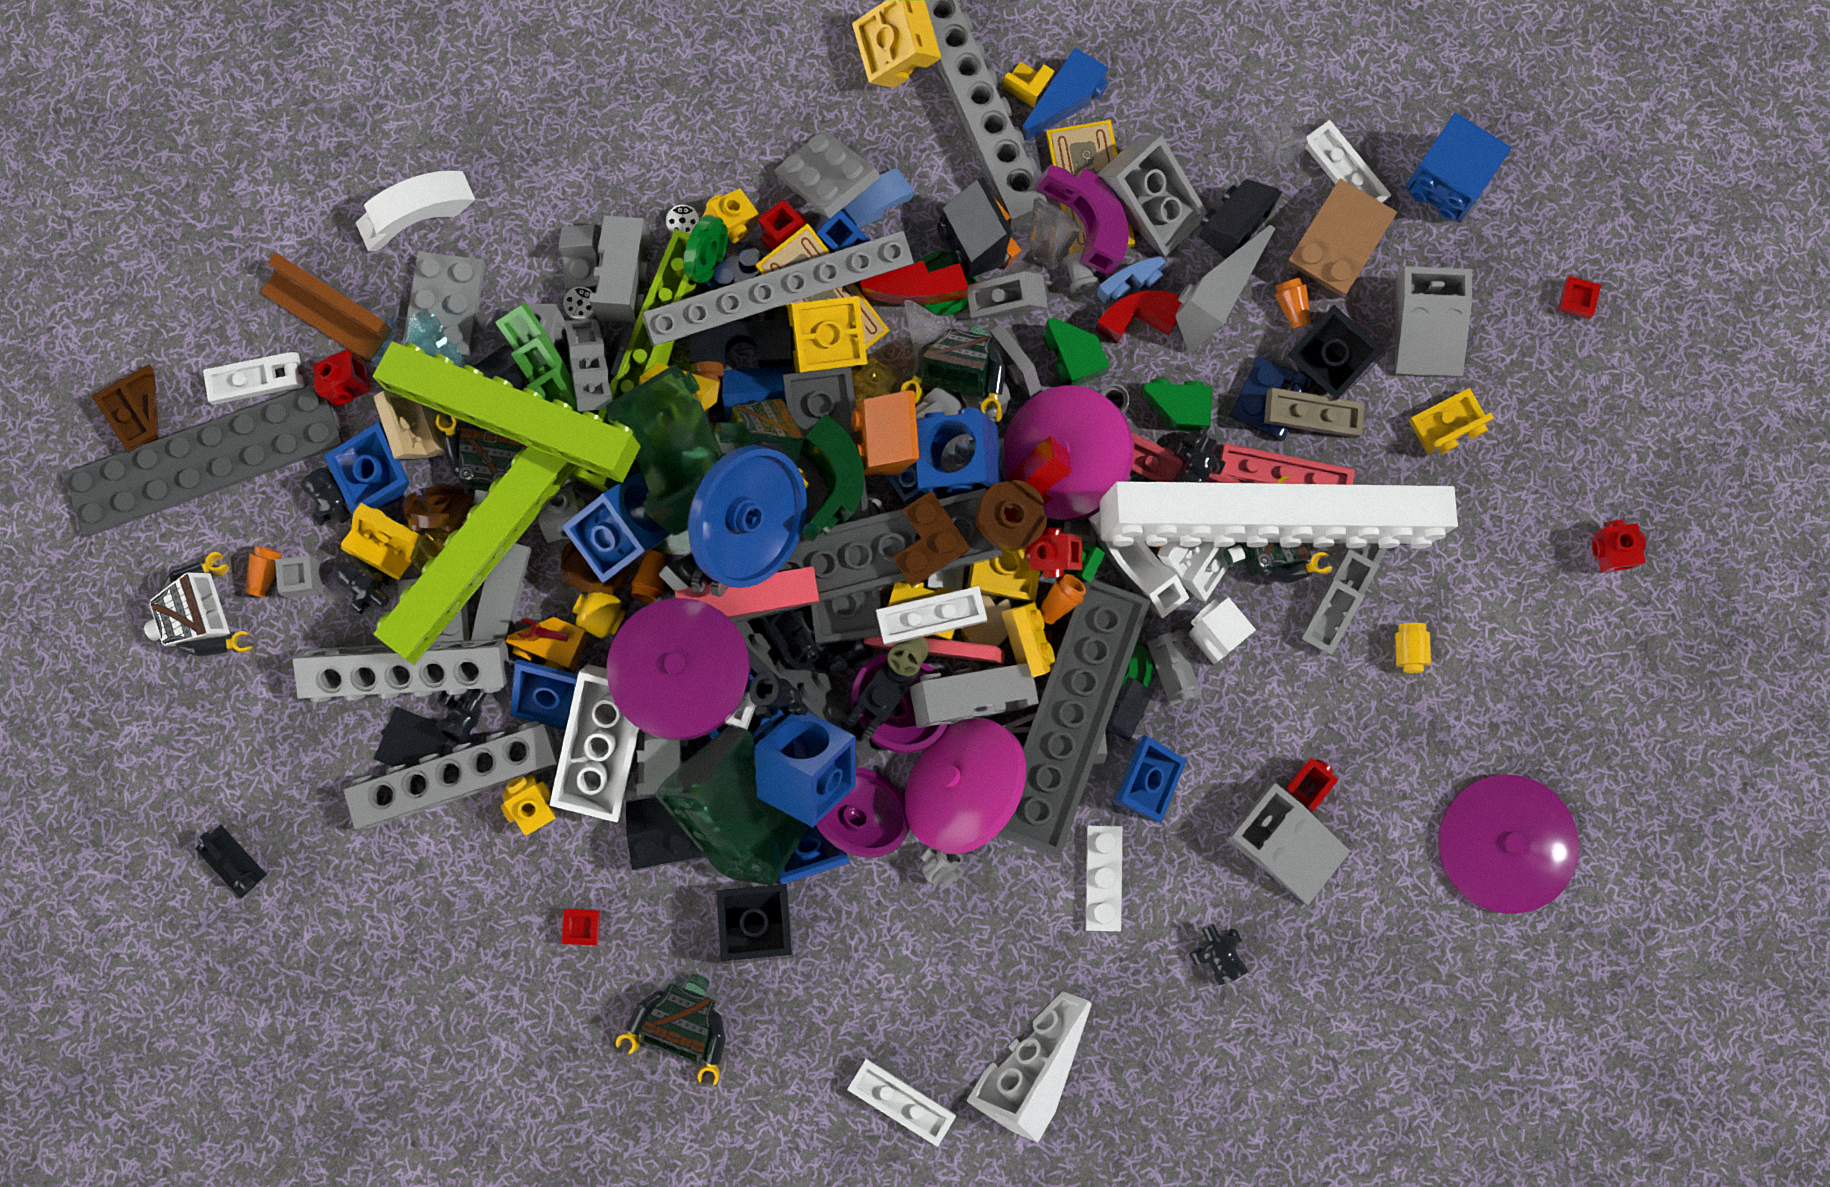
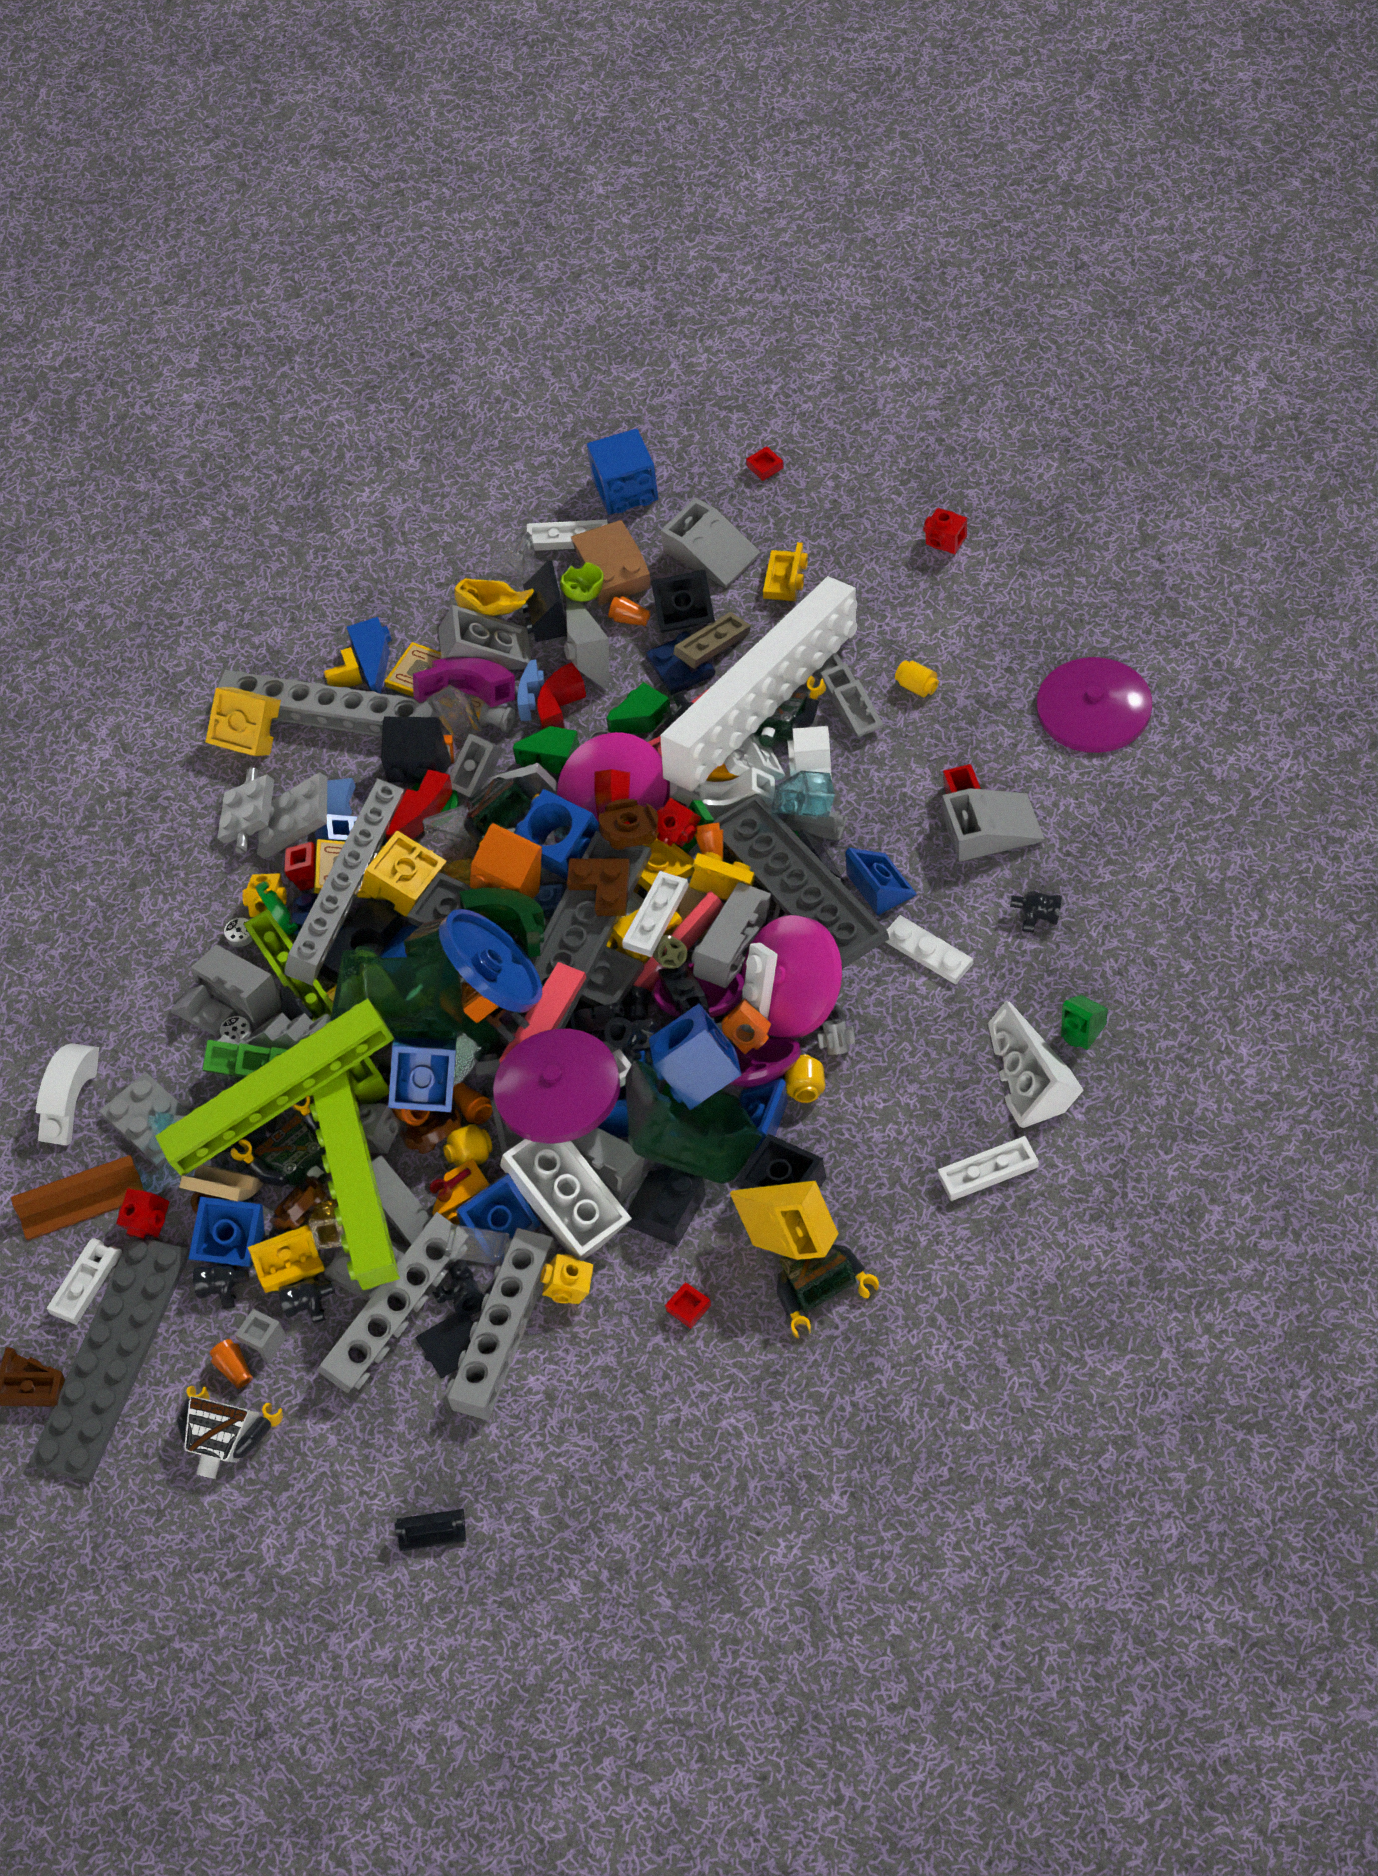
camera: 45 degrees left, 25 degrees down
(501, 701) = (476, 1244): none -> clear tile
(704, 978) = (787, 1219): none -> yellow slope
(809, 121) = (246, 809): none -> light grey plate
(878, 872) = (805, 1079): none -> yellow head
(883, 780) = (746, 1014): none -> orange brick
(927, 765) = (759, 979): none -> white plate
(1117, 1089) = (1082, 1021): none -> green slope
(1180, 652) = (804, 794): none -> clear light blue slope
(1208, 158) = (489, 596): none -> yellow hair
(1280, 240) = (582, 583): none -> lime hair

